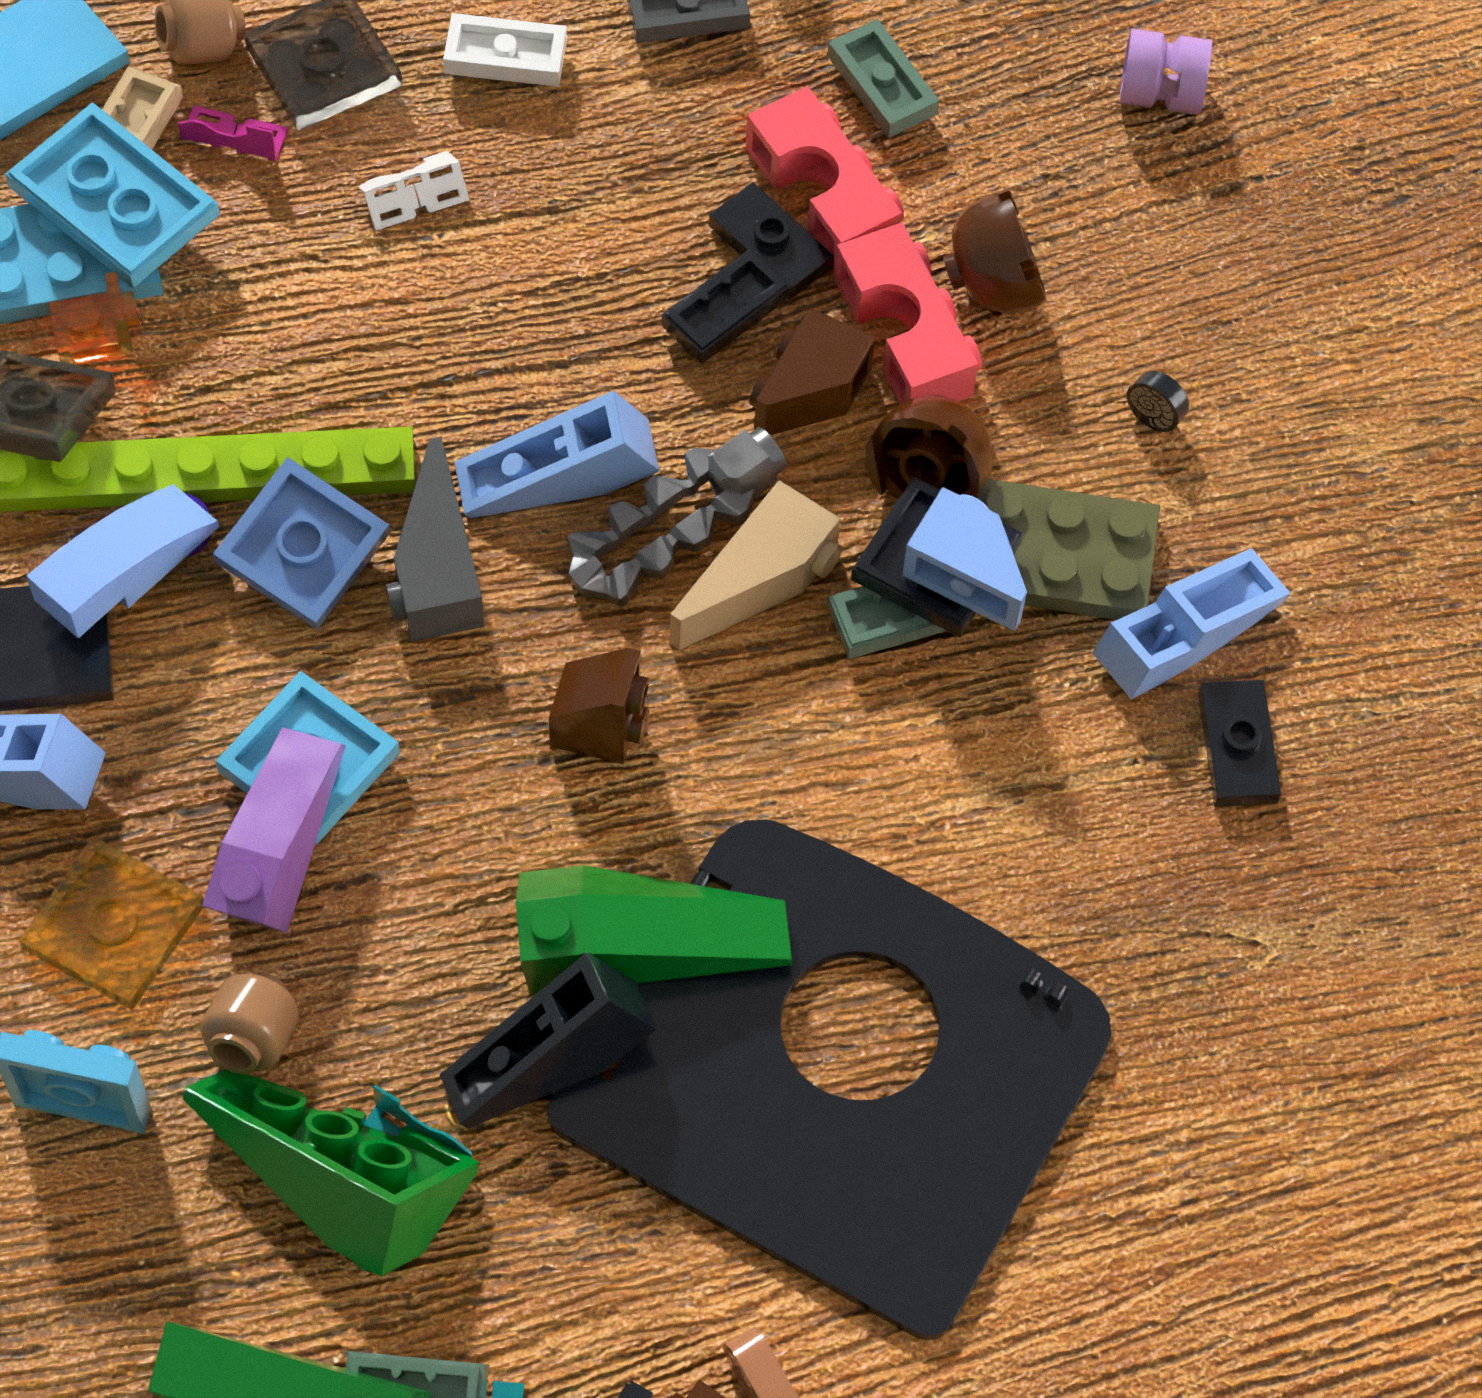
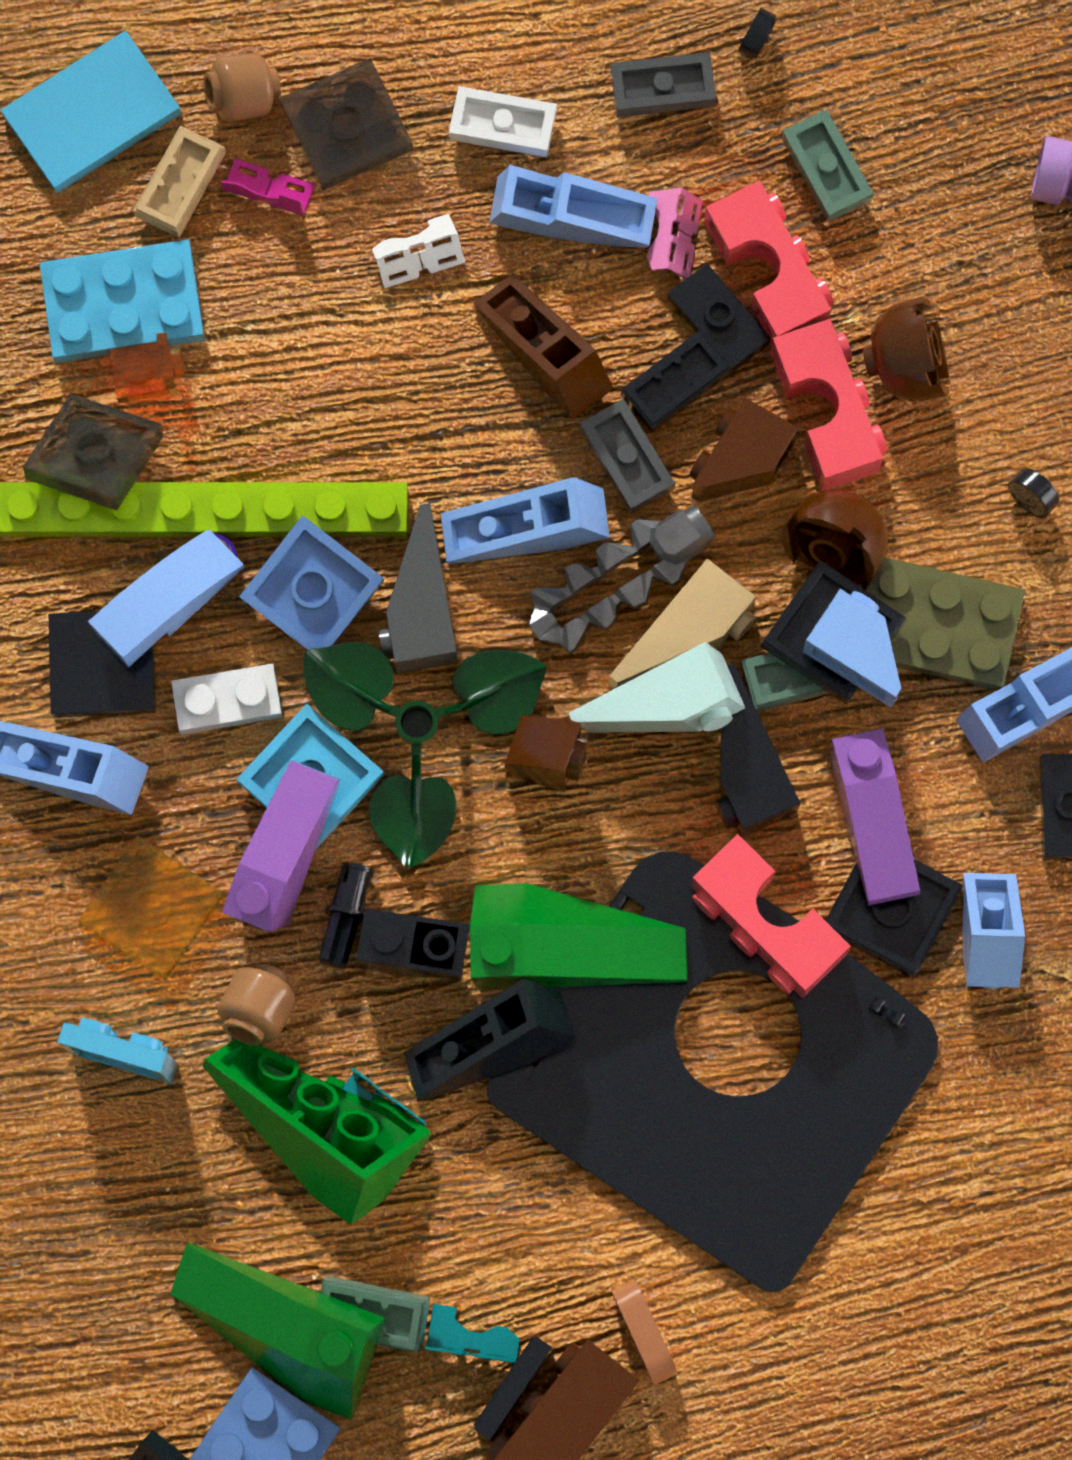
camera: 10 degrees right, 15 degrees up
(112, 195) = (164, 254): medium azure tile -> none
(201, 678) = (226, 699): none -> white plate
(358, 911) = (345, 913): none -> black axle
(359, 636) = (350, 684): none -> dark green plant
(441, 938) = (412, 945): none -> black slope
(573, 274) = (545, 345): none -> reddish brown slope
(590, 133) = (572, 208): none -> light blue slope
(674, 386) = (627, 456): none -> dark grey plate
(700, 131) = (666, 213): none -> bright pink piece
(743, 634) = (678, 696): none -> light aqua slope
(853, 725) = (750, 772): none -> black slope
(922, 917) = (796, 953): none -> coral arch
(1006, 754) = (874, 816): none -> medium lavender slope
(1037, 869) = (899, 929): none -> black tile
(1164, 886) = (992, 930): none -> light blue slope

